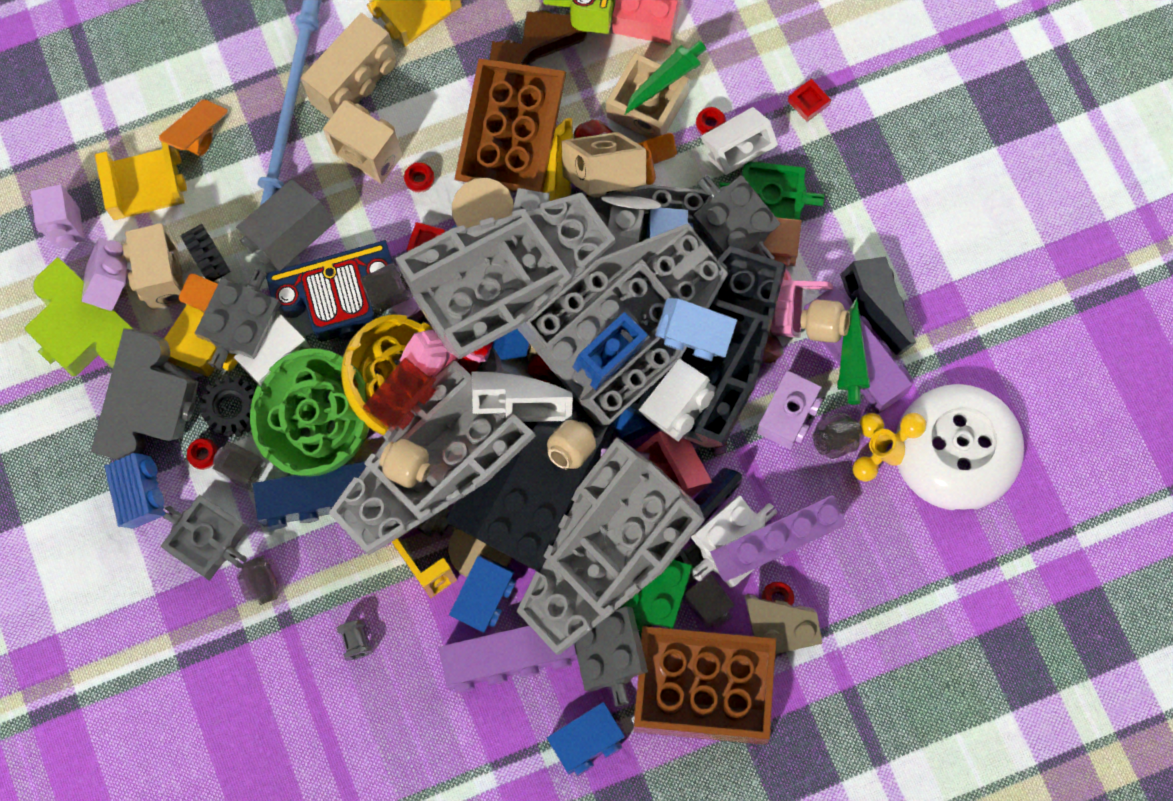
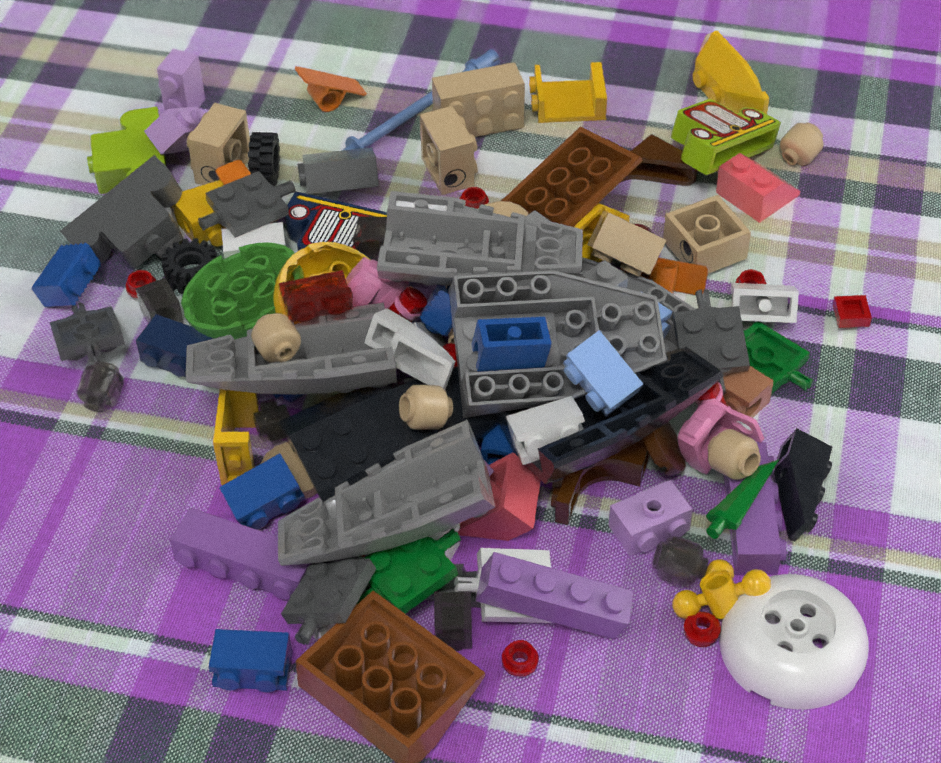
camera: 30 degrees right, 25 degrees down
(141, 182) = (264, 105): yellow panel -> none
(354, 640) = (129, 475): dark grey bush -> none
(631, 201) = (633, 279): white sticker -> none
(674, 68) = (749, 216): green bar -> none
(717, 492) = (546, 541): black slope -> none
(790, 625) = (507, 680): dark tan wing -> none
(889, 491) = (698, 636): none -> red plate

